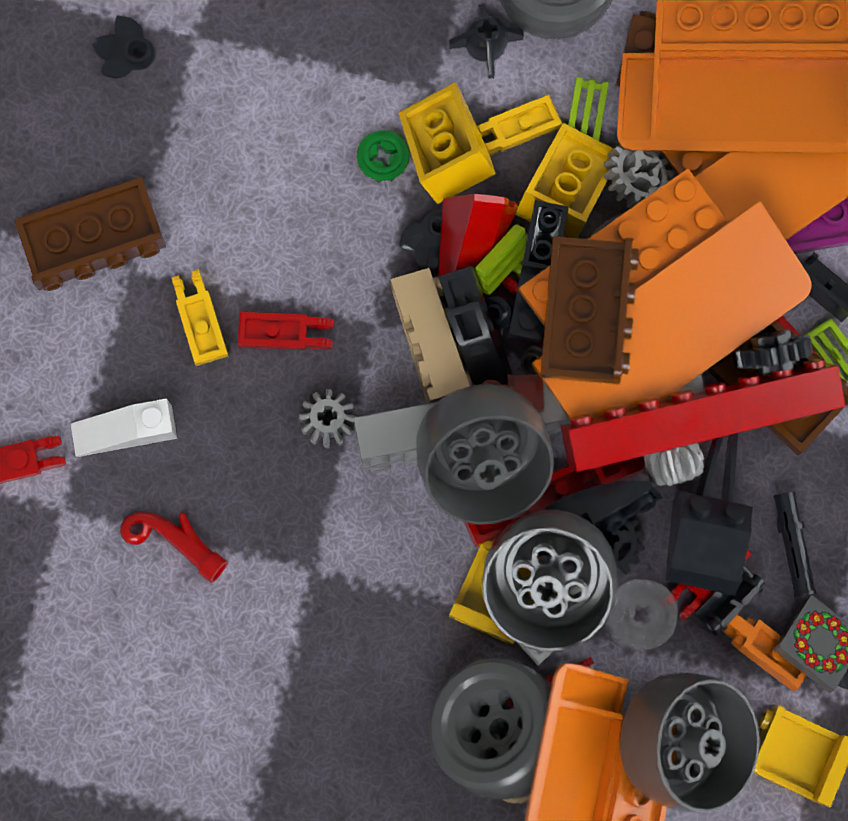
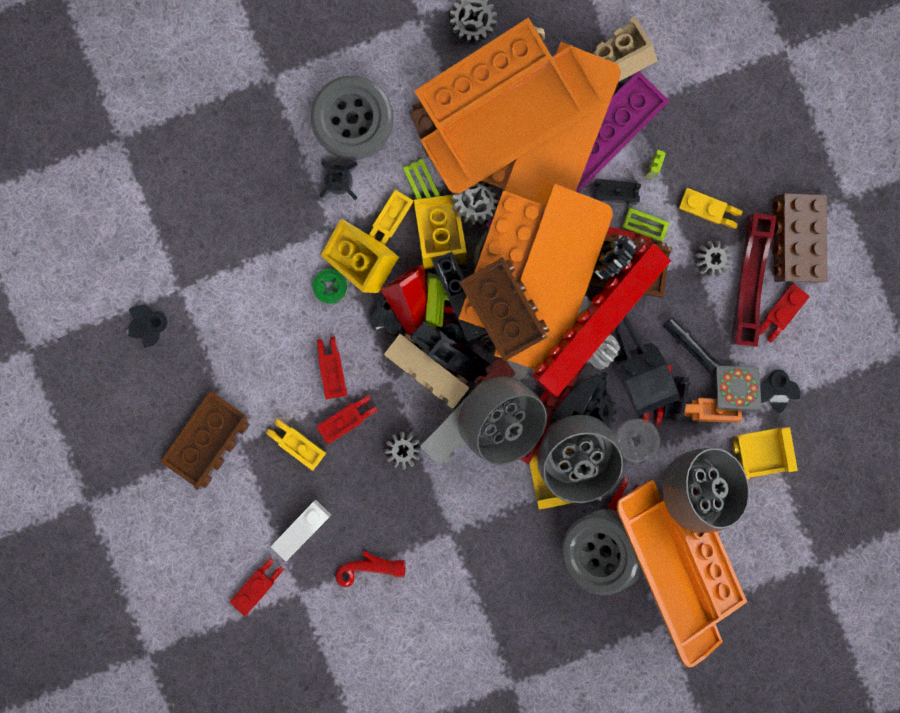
camera: 25 degrees left, 10 degrees up
(310, 259) = (331, 370): none -> red hinge

